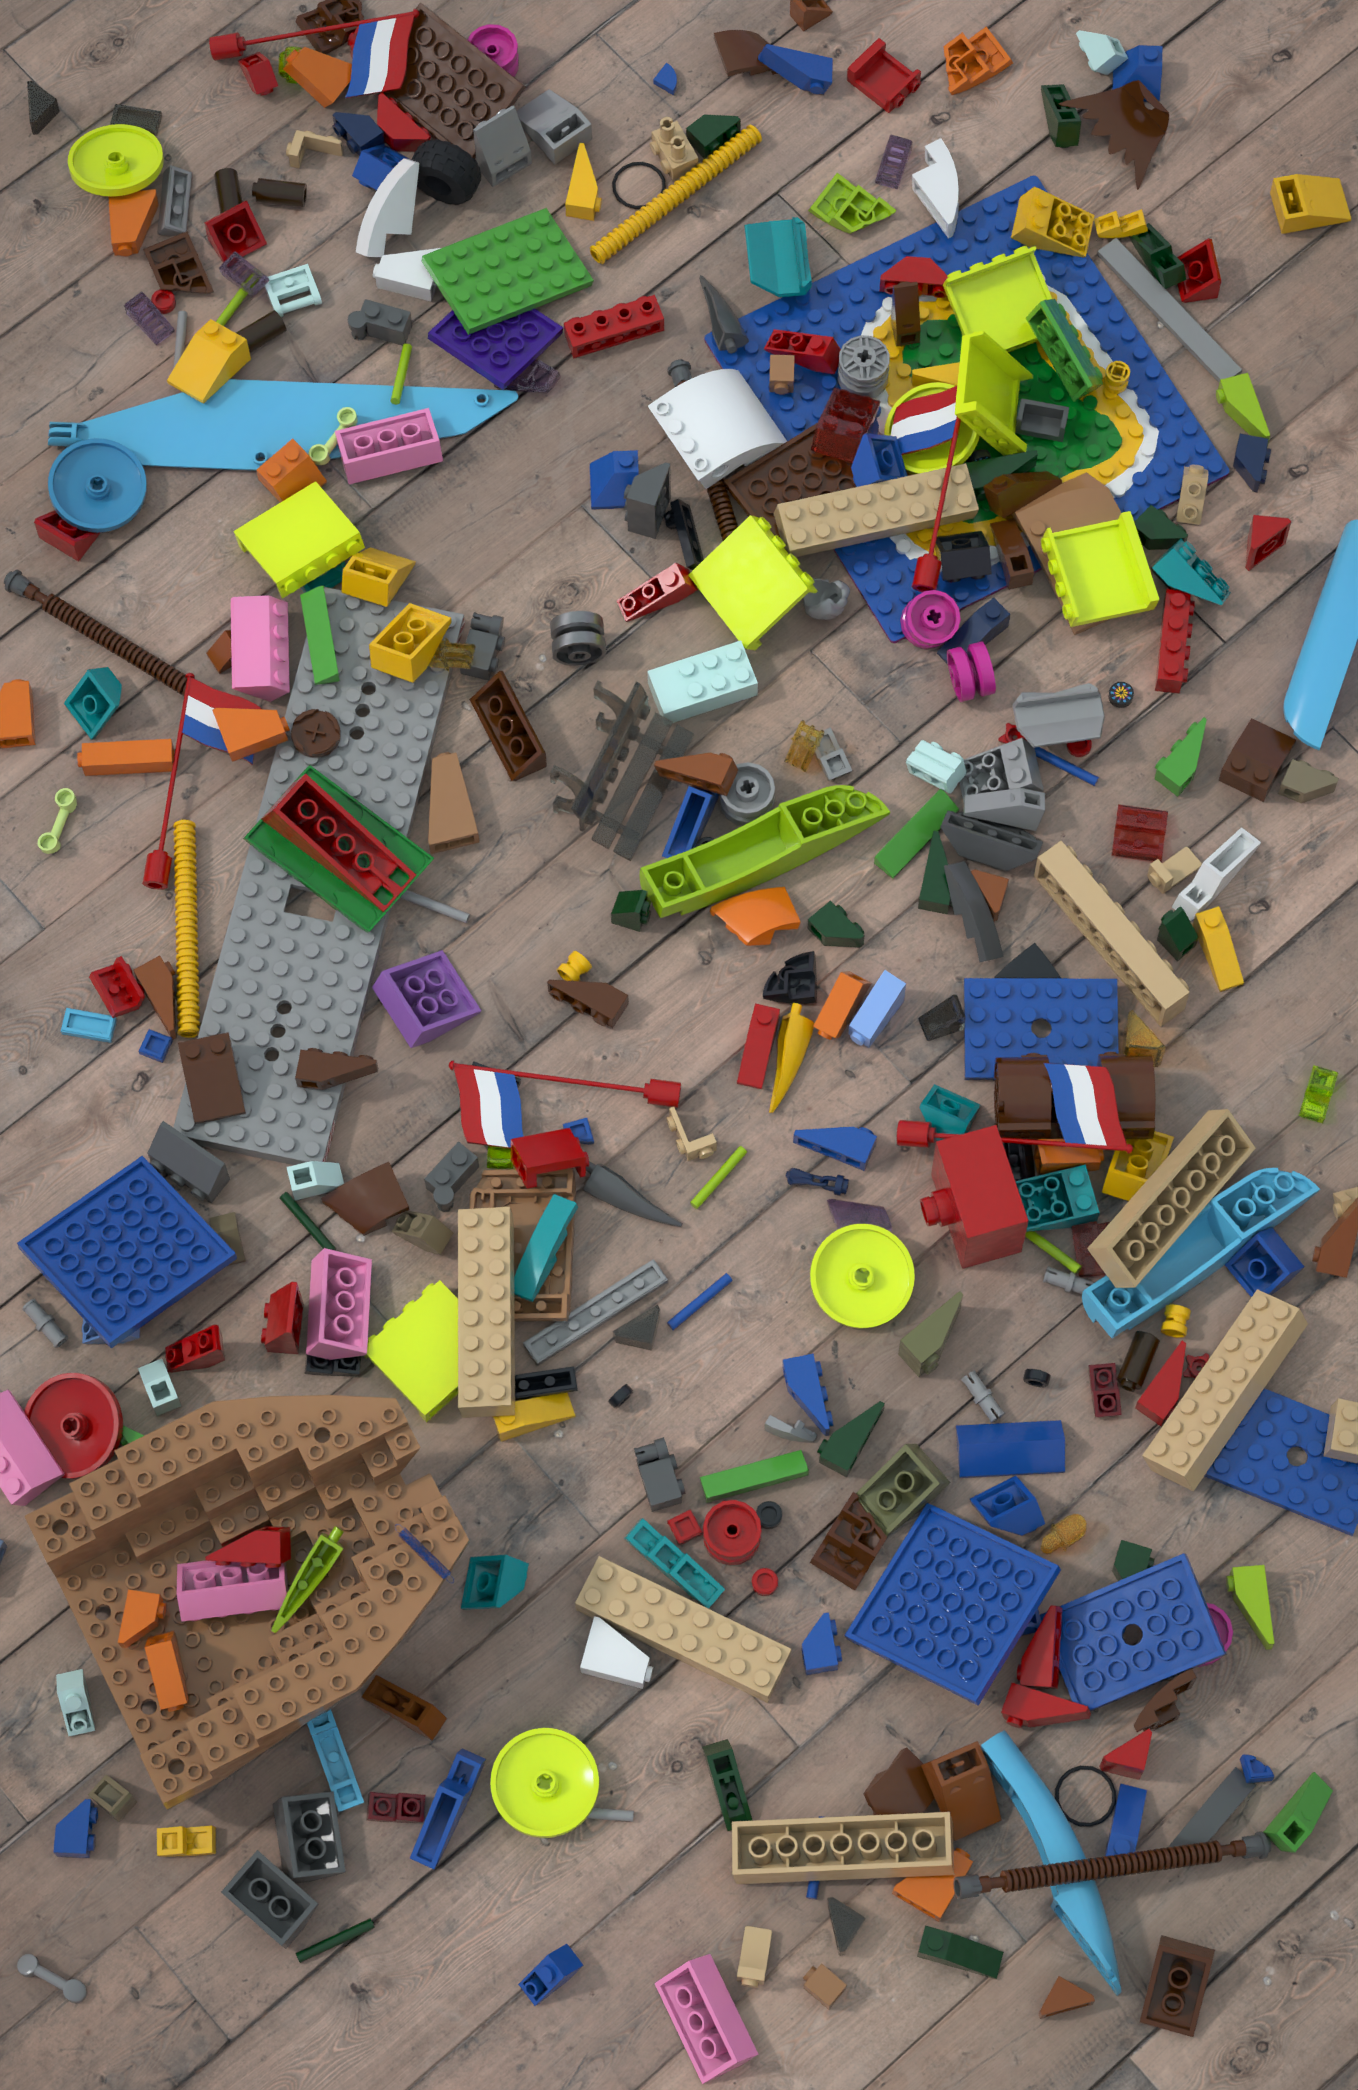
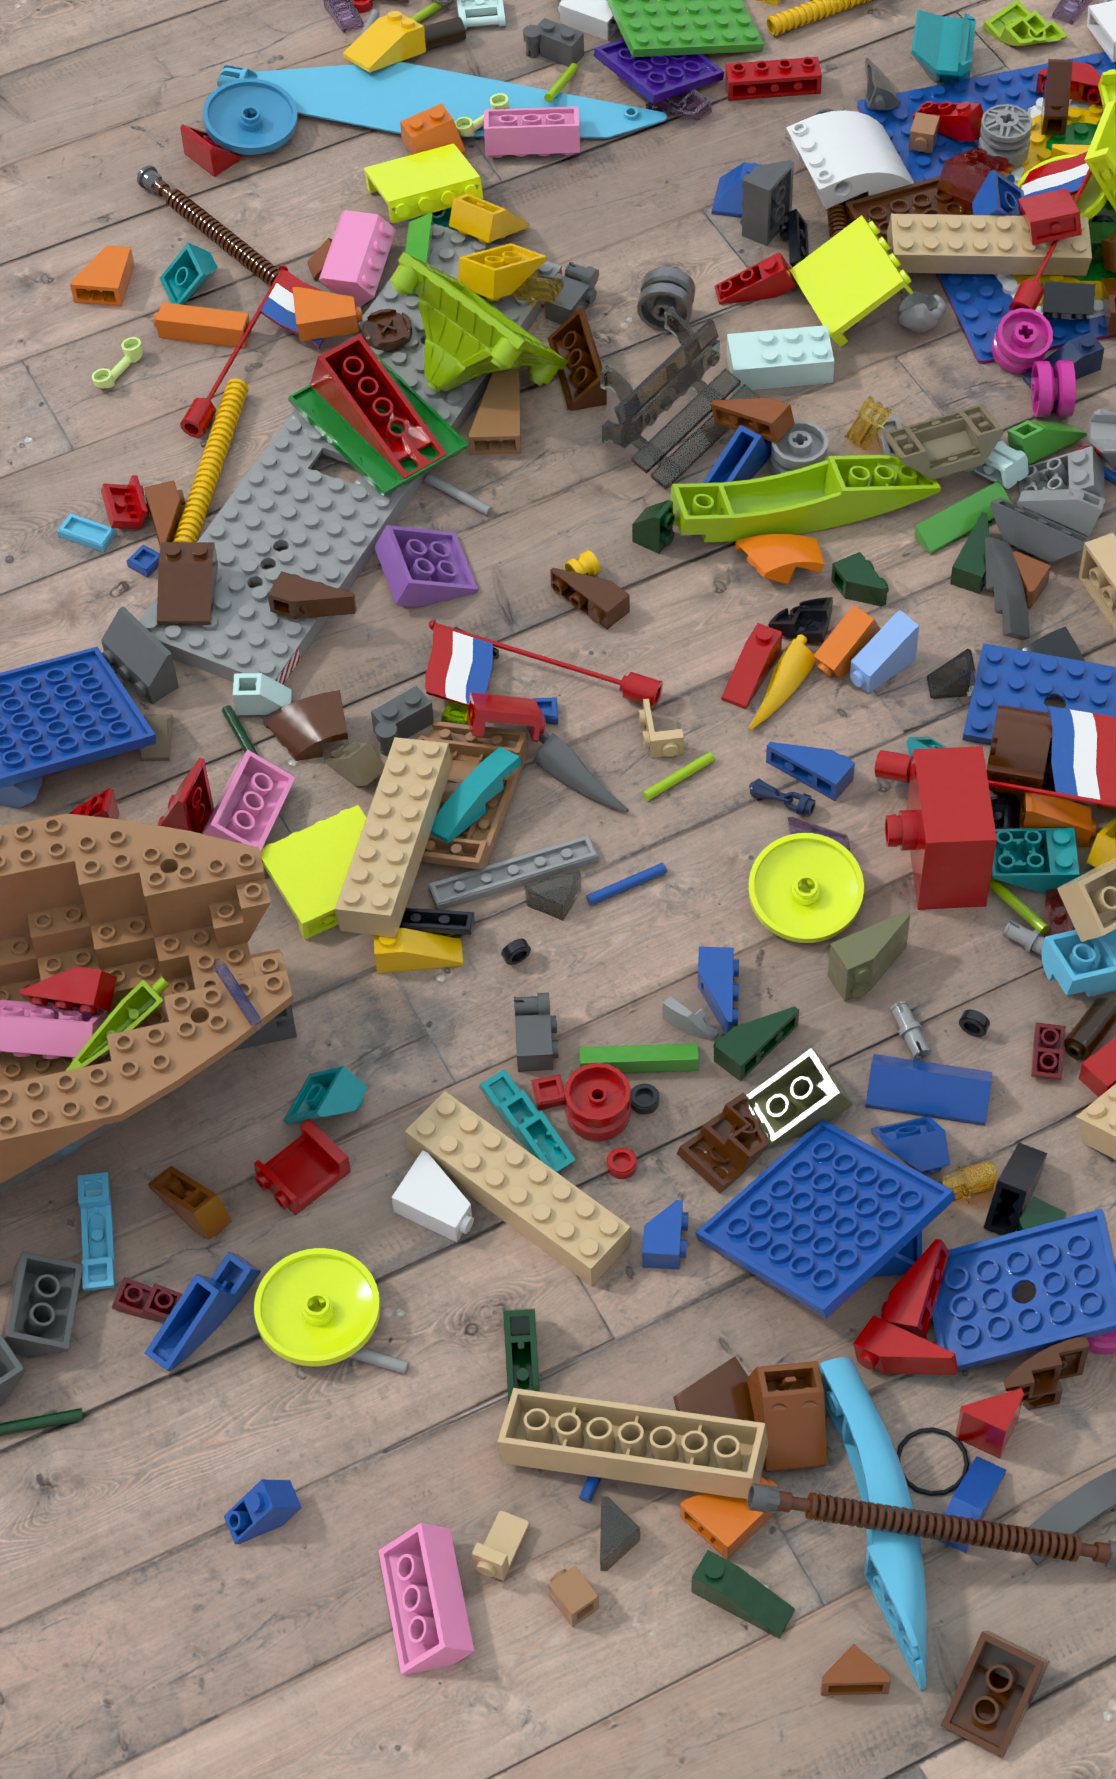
camera: 15 degrees right, 15 degrees down
(409, 734) = (467, 332): none -> lime piece
(492, 1653) = (303, 1169): none -> red panel
(884, 759) = (947, 442): none -> dark tan slope
(931, 476) = (1050, 216): none -> red panel
(971, 728) = (1042, 438): none -> bright green slope
(1104, 1533) = (1015, 1189): none -> black slope

